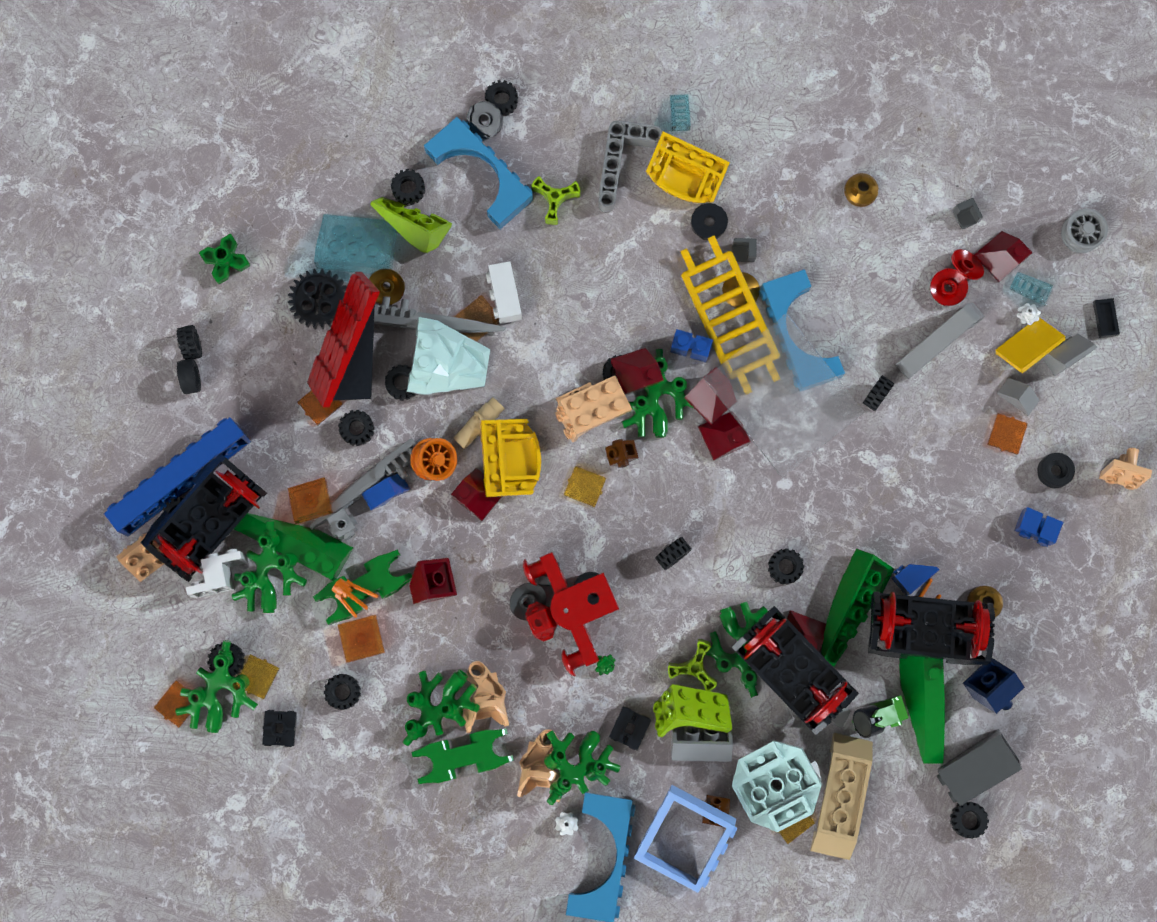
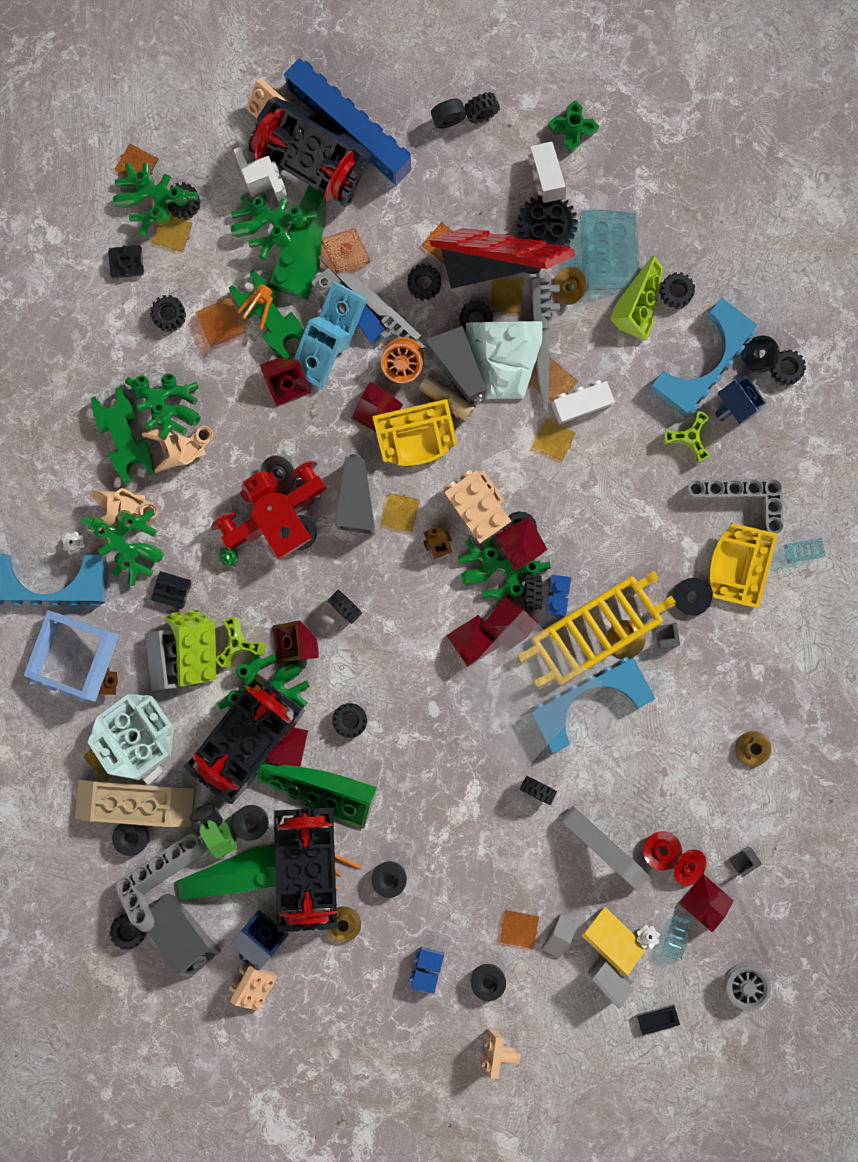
camera: 85 degrees right, 5 degrees up
(268, 289) = (547, 172): none -> white brick
(386, 350) = (506, 295): none -> clear yellow piece
(393, 527) = (329, 333): none -> medium azure bracket
(448, 404) = (457, 361): none -> dark grey slope
(528, 144) = (740, 400): none -> dark blue brick
(535, 327) = (554, 440): none -> clear yellow piece
(566, 526) = (355, 502): none -> dark grey slope
(685, 367) = (533, 592): none -> black tyre
(701, 610) = (294, 642): none -> dark red slope
(883, 672) = (240, 827): none -> black tyre
(887, 805) = (130, 849): none -> black tyre
(912, 577) = (357, 848): blue slope -> none
(919, 783) = (154, 876): none -> light grey beam
(954, 542) = (397, 887): none -> black tyre
(1040, 698) = (253, 987): none -> light nougat plate

